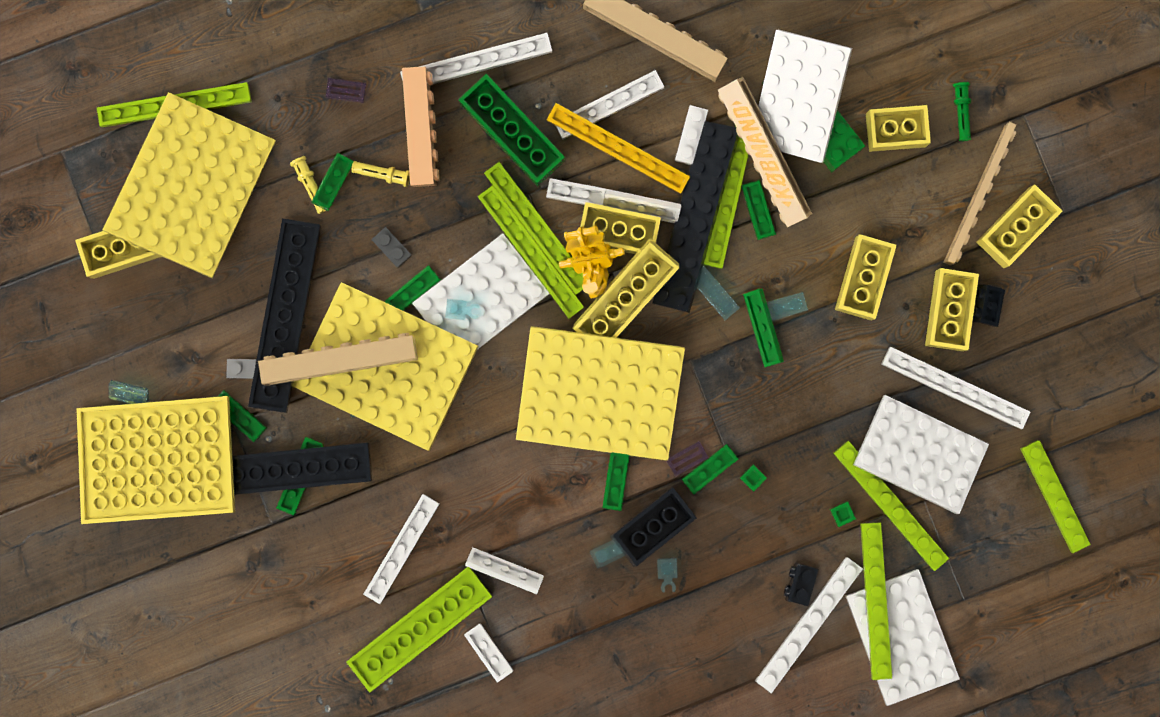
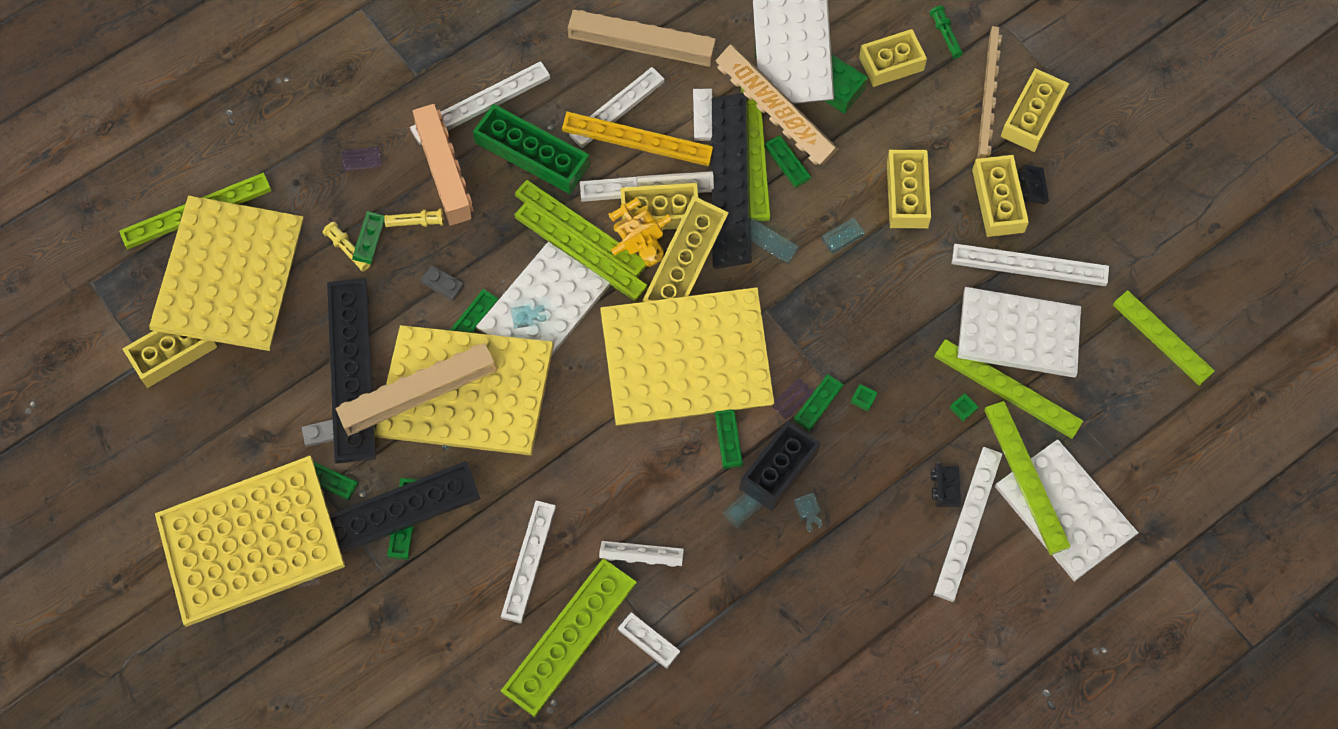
camera: 15 degrees left, 20 degrees down
(128, 393) = (204, 484): clear light blue plate -> none
(763, 327) = (827, 259): green plate -> none

